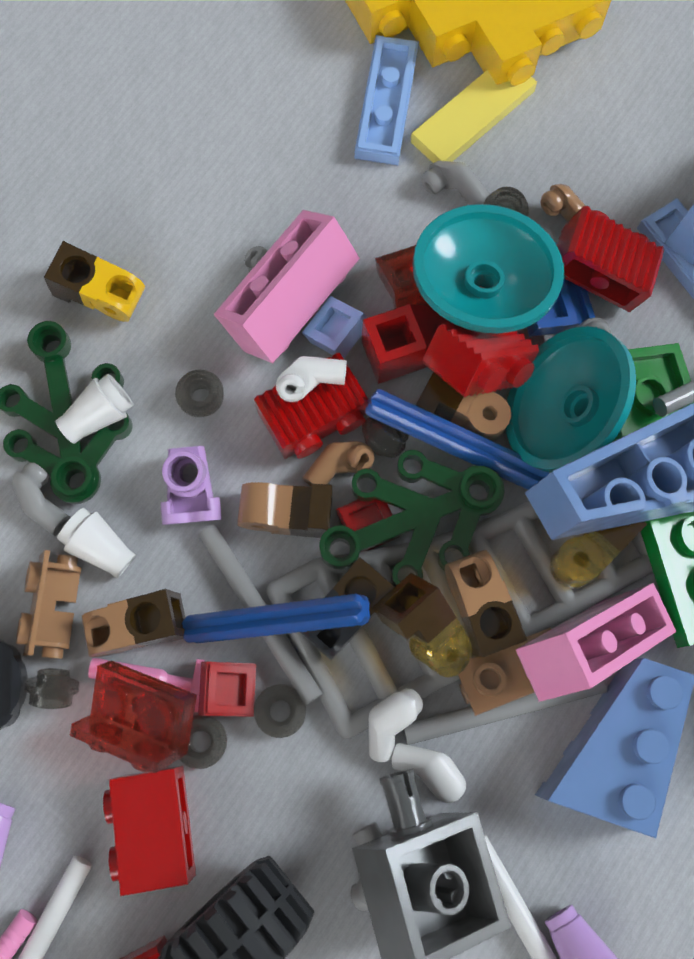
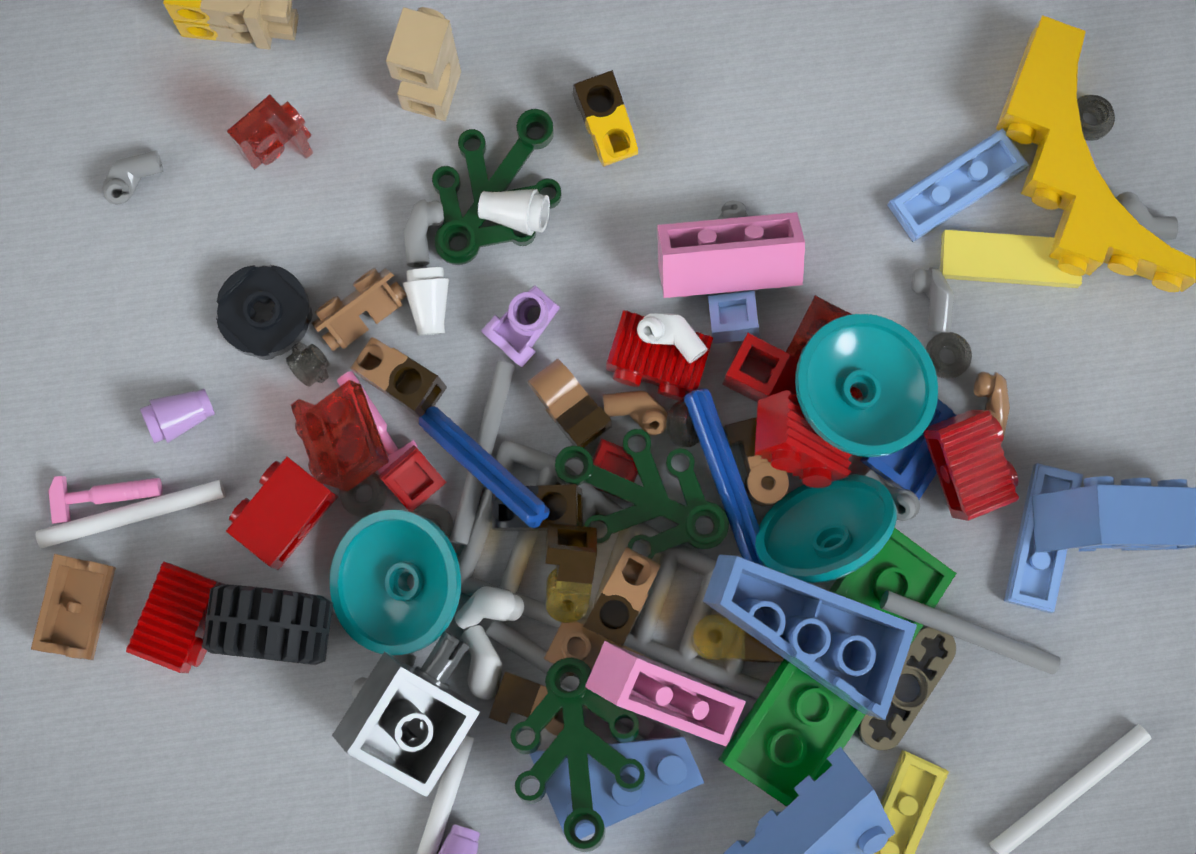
camera: 50 degrees right, 5 degrees up
(199, 380) = (600, 253): clear smoke plate -> none
(294, 812) = (372, 585): none -> teal dish
(505, 754) = (522, 697): none -> dark brown leg
(578, 753) = (575, 744): none -> dark green plant

